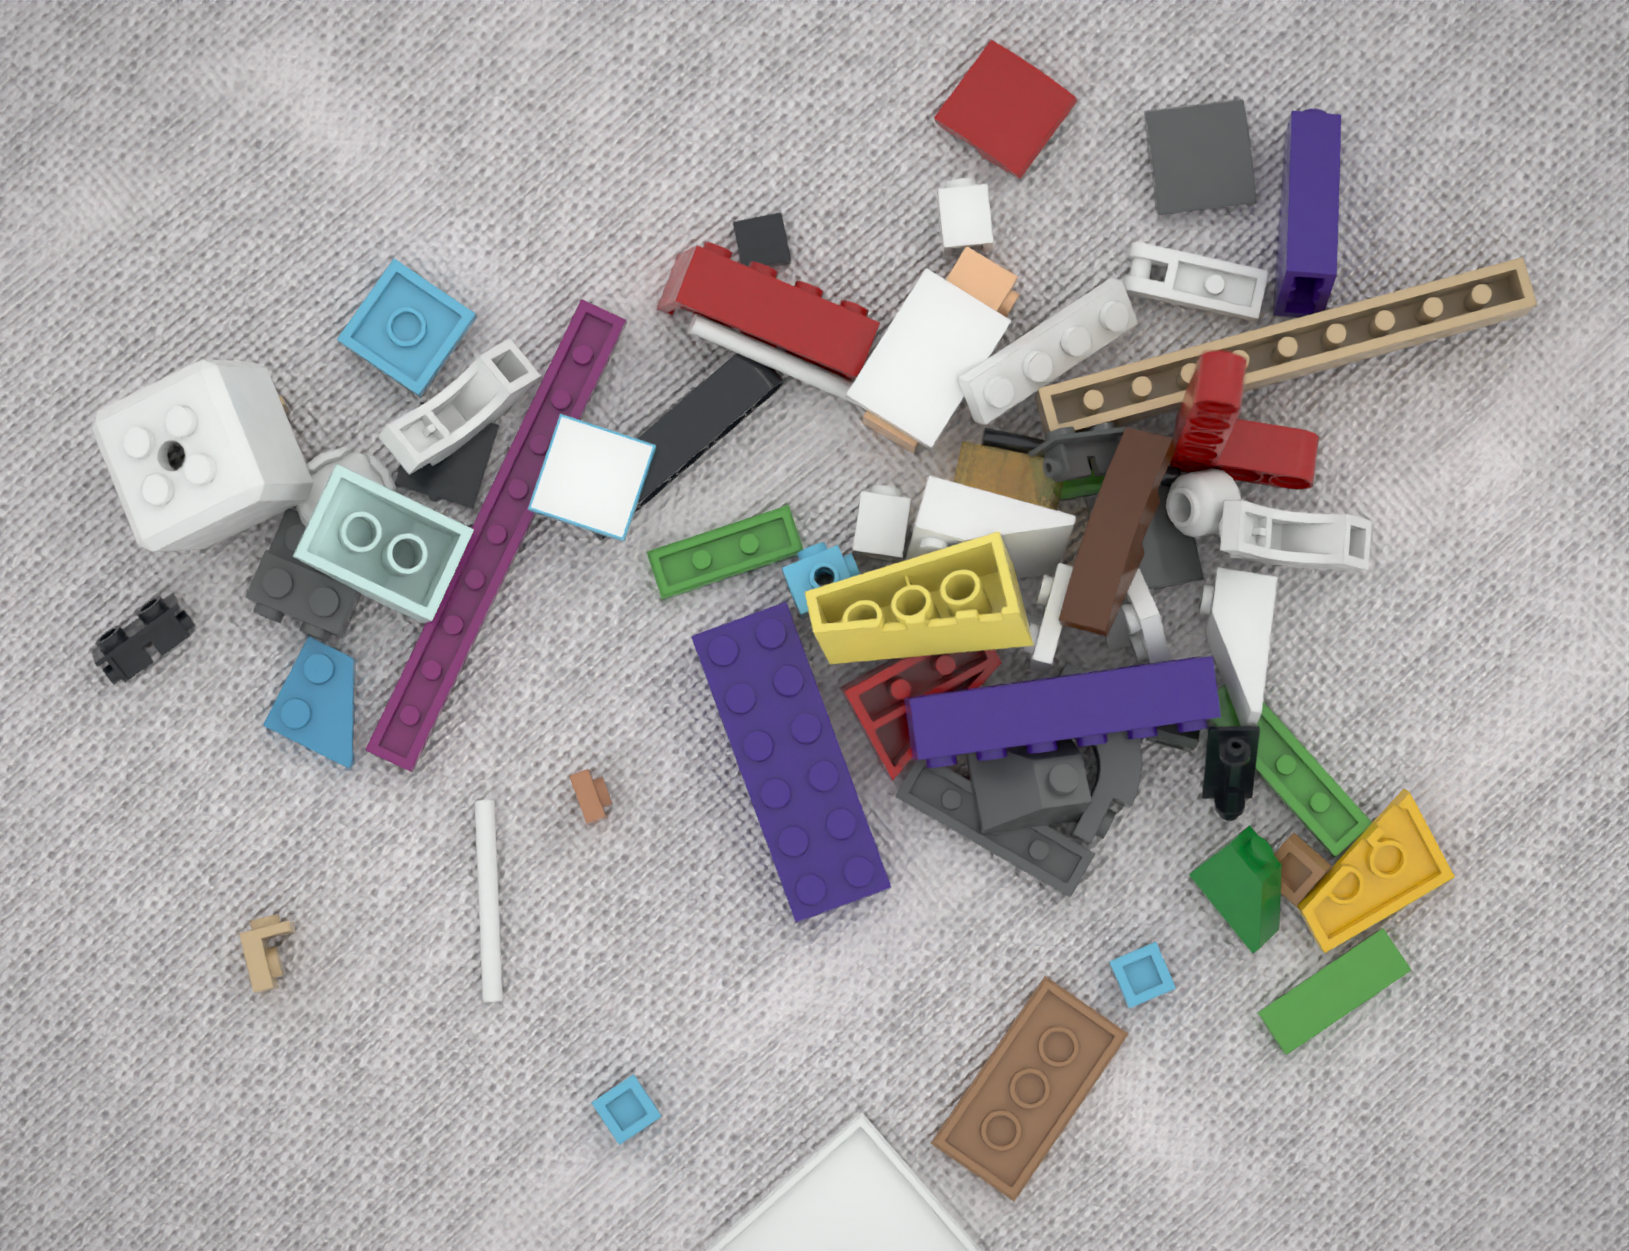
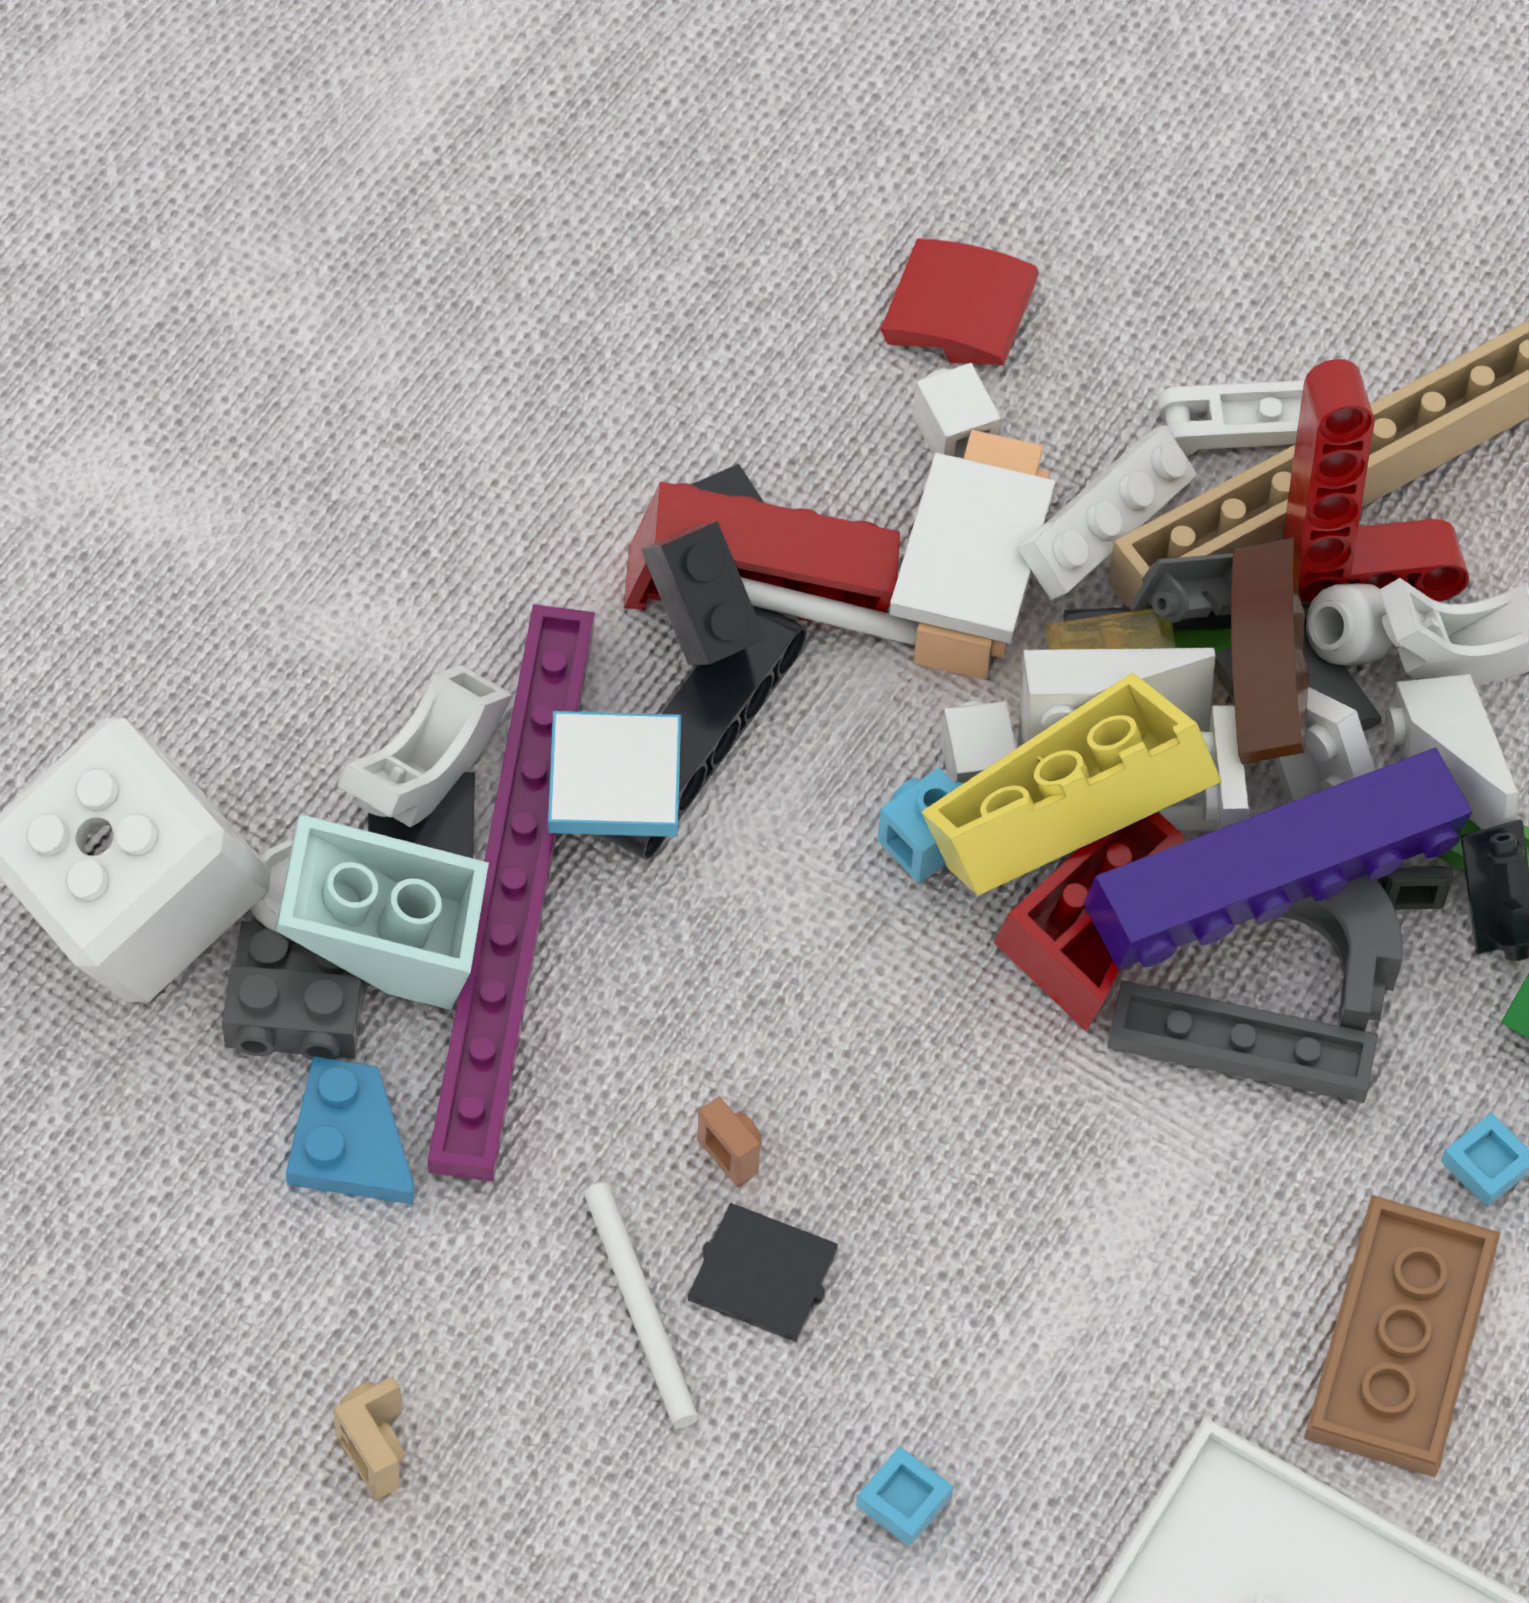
camera: 20 degrees left, 25 degrees down
(125, 646) = (81, 1133): black hinge -> none
(407, 328) = (329, 691): medium azure plate -> none
(585, 900) = (763, 1272): none -> black piece
(698, 357) = (703, 594): none -> black brick
(725, 552) = (797, 838): bright green tile -> none
(791, 762) = (969, 1035): dark purple brick -> none
(1029, 788) = (1268, 973): dark grey slope -> none
(1200, 156) = (1200, 294): dark grey slope -> none
(1308, 214) = (1347, 297): dark purple slope -> none

